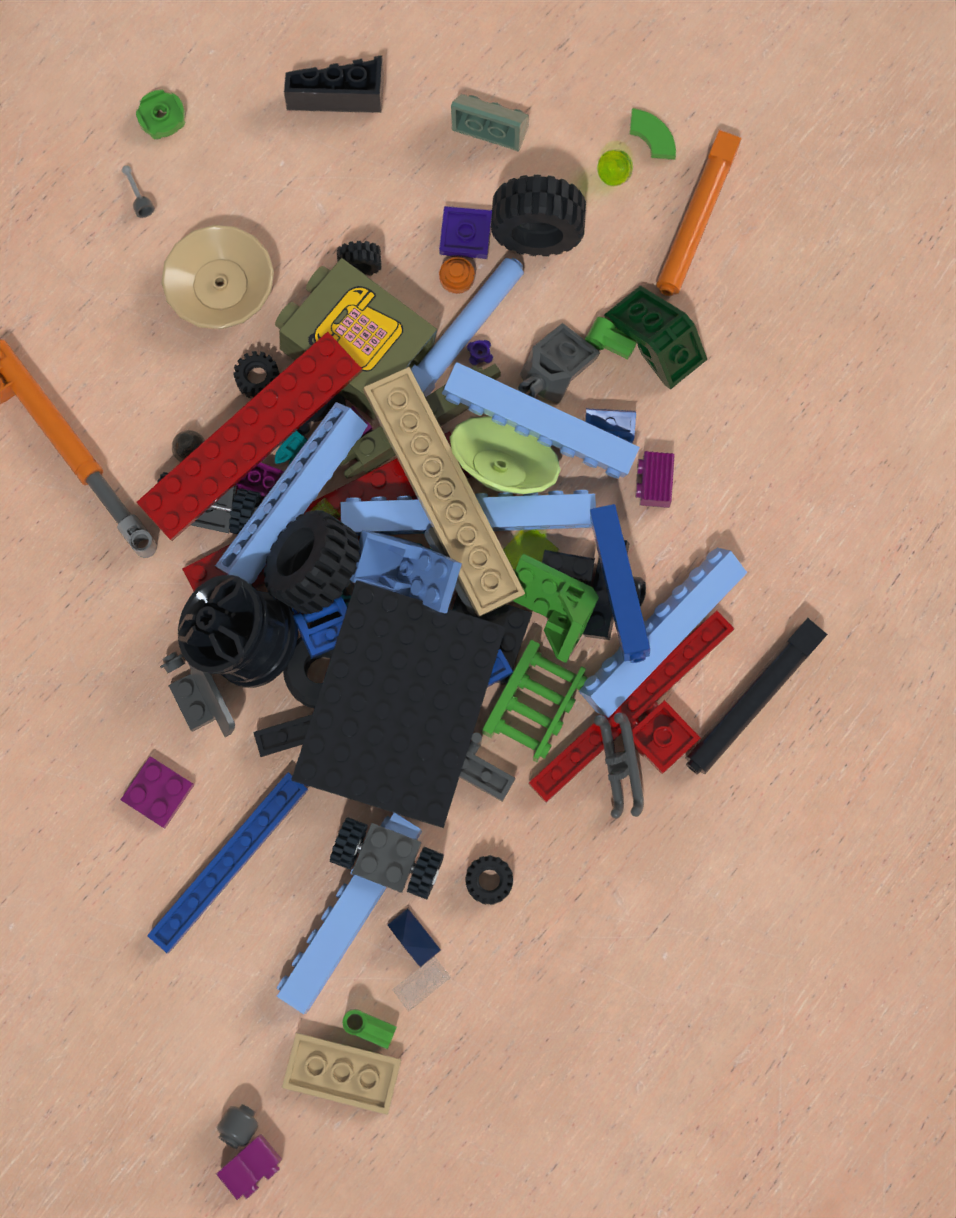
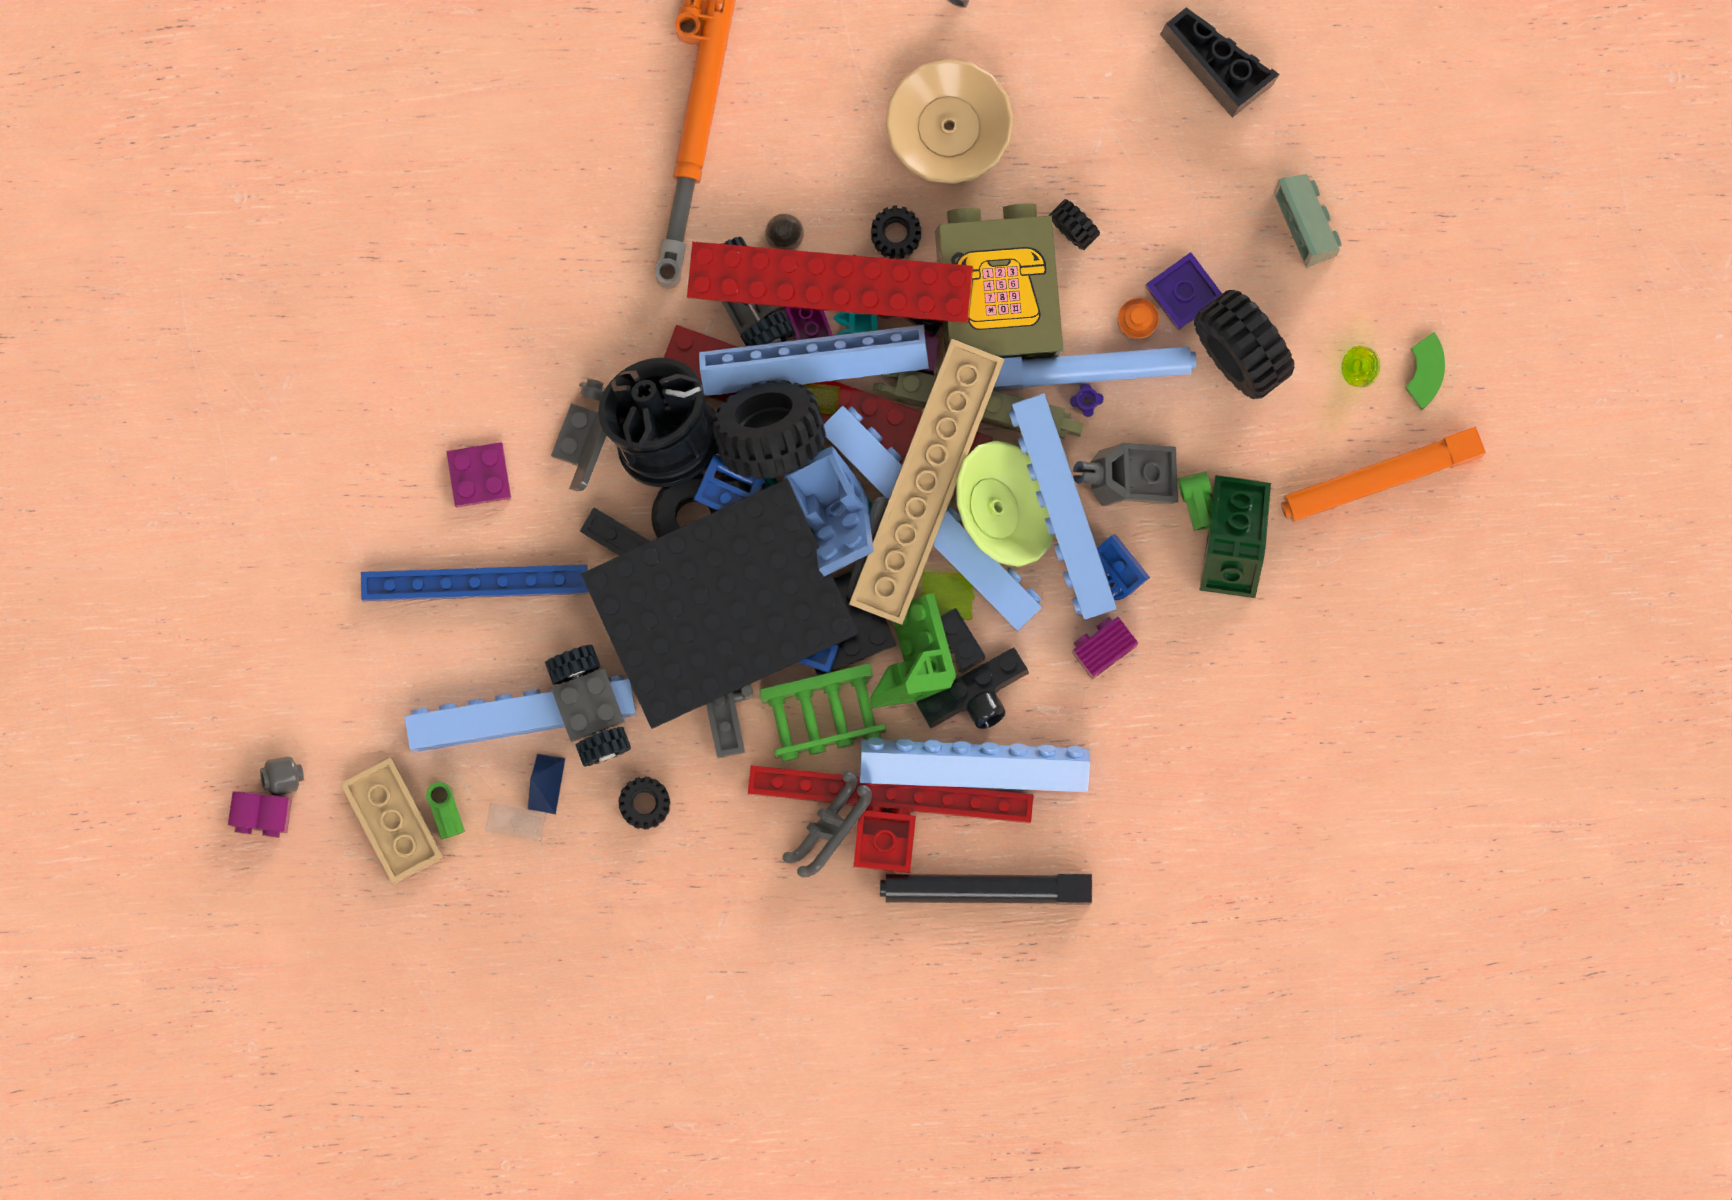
camera: 45 degrees right, 5 degrees up
(620, 584) = (977, 694): blue brick -> none

